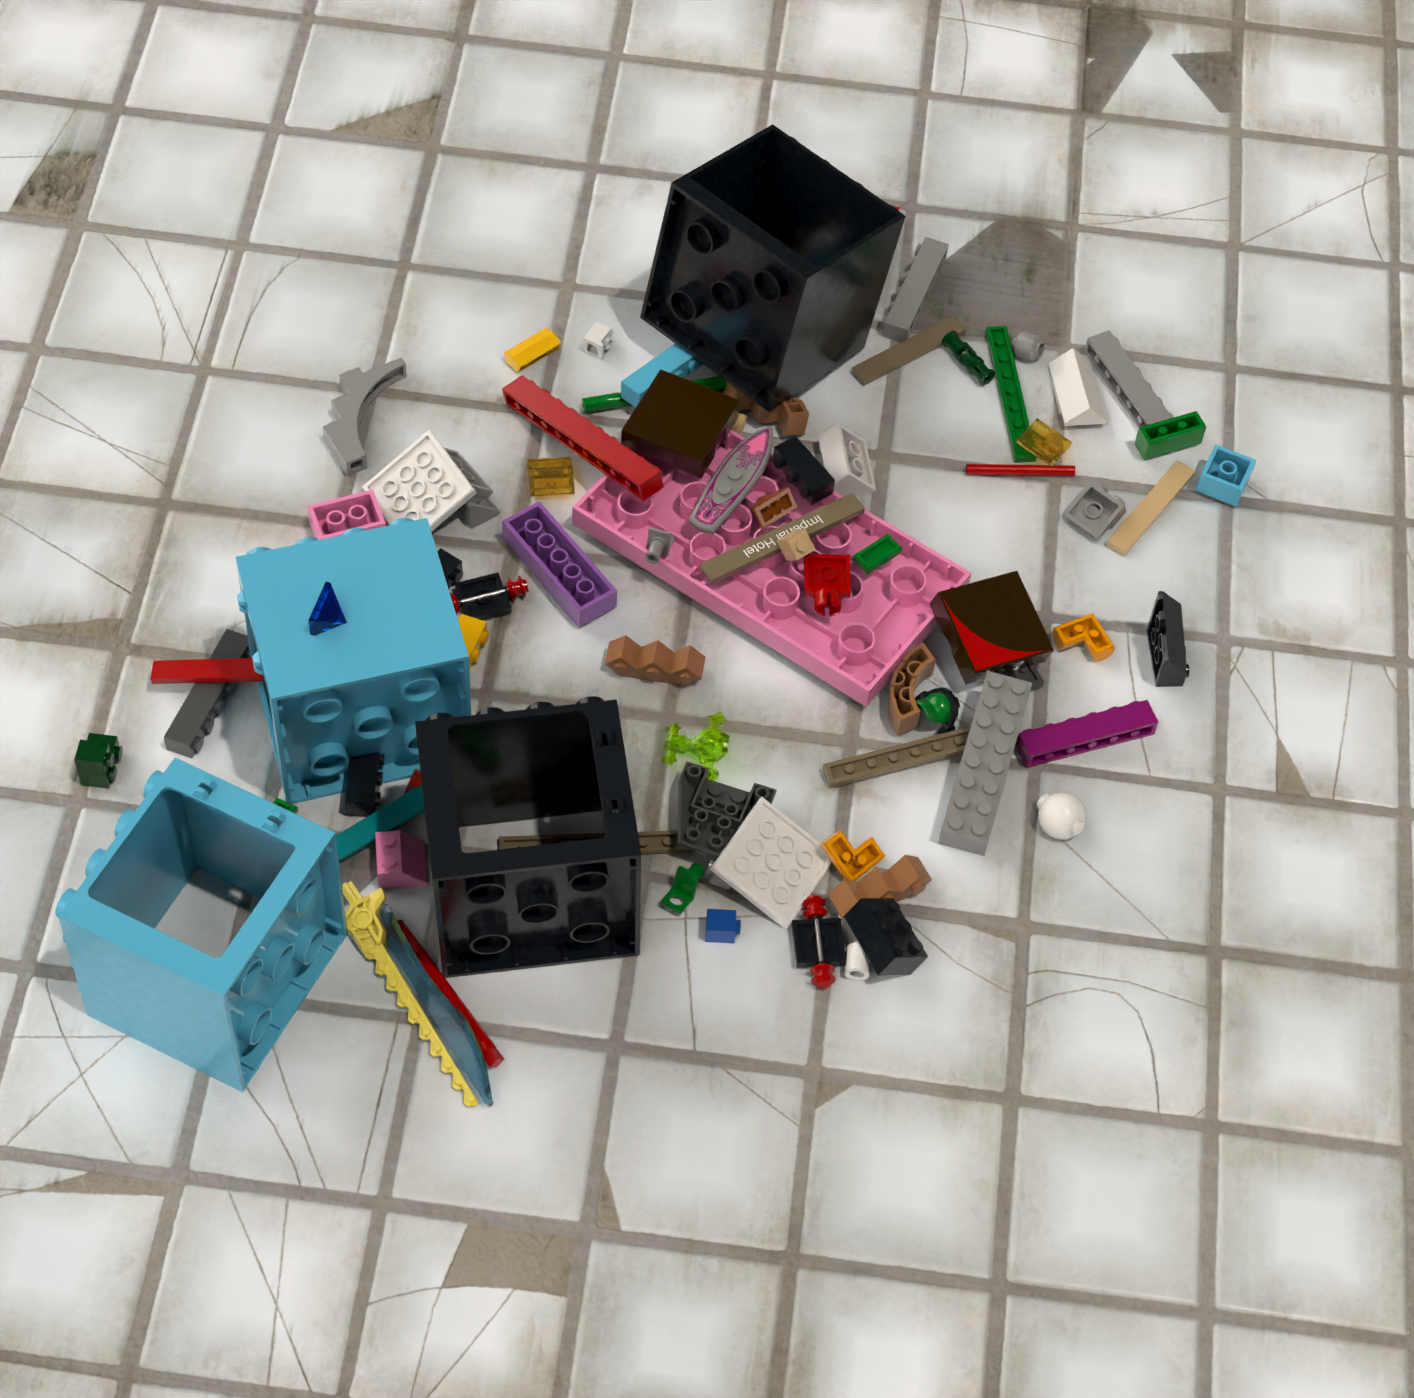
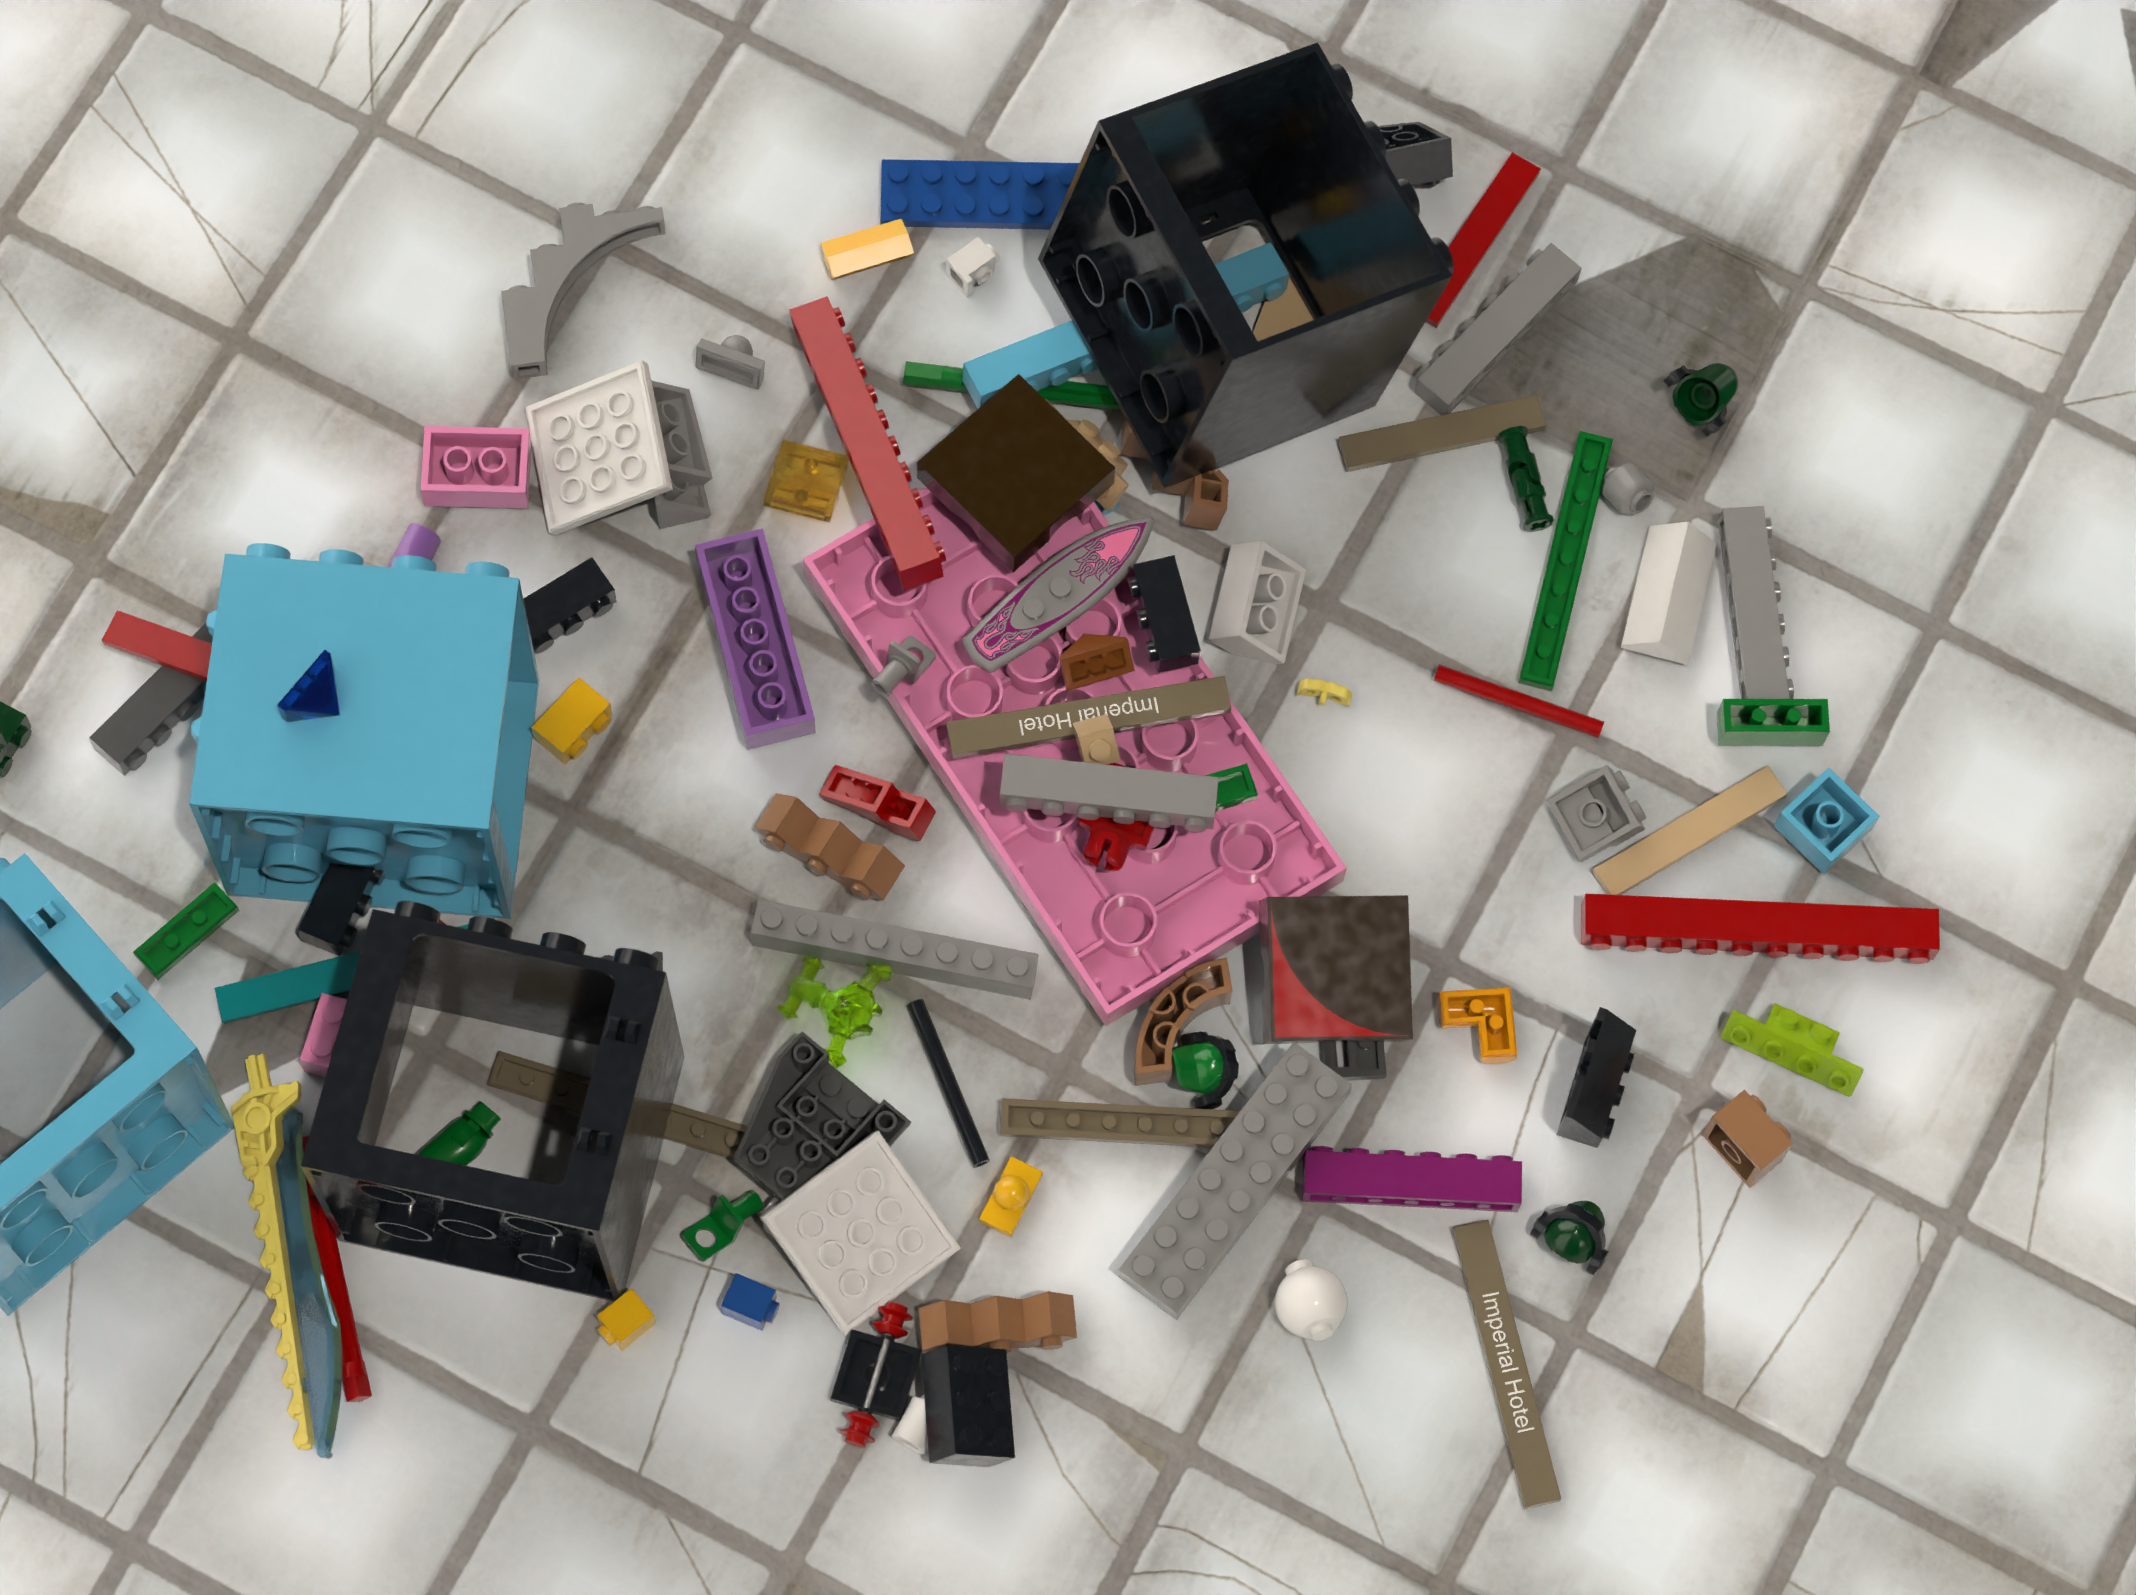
camera: 20 degrees right, 15 degrees up
(477, 427) = (731, 360): none -> light grey tile
(486, 596) = (626, 654): black plate -> none
(585, 305) = (973, 193): none -> blue plate
(648, 960) = (625, 1320): none -> yellow brick
(673, 628) = (879, 802): none -> red slope
(732, 701) = (904, 949): none -> light grey brick
(787, 770) = (948, 1083): none -> black piece
(816, 566) = (1108, 792): none -> light grey brick
(850, 861) = (976, 1269): light orange brick -> none
(853, 818) = (1011, 1196): none -> yellow tile
(910, 496) = (1325, 690): none -> light yellow piece
(1044, 442) = (1572, 669): clear yellow slope -> none
(1047, 285) = (1703, 394): none -> dark green cap
(1191, 816) = (1506, 1364): none -> dark tan tile
(1196, 728) = (1575, 1233): none -> cap
(1215, 541) = (1760, 927): none -> red brick
(1268, 596) = (1795, 1045): none -> lime bracket
(1269, 647) = (1748, 1138): none -> medium nougat brick

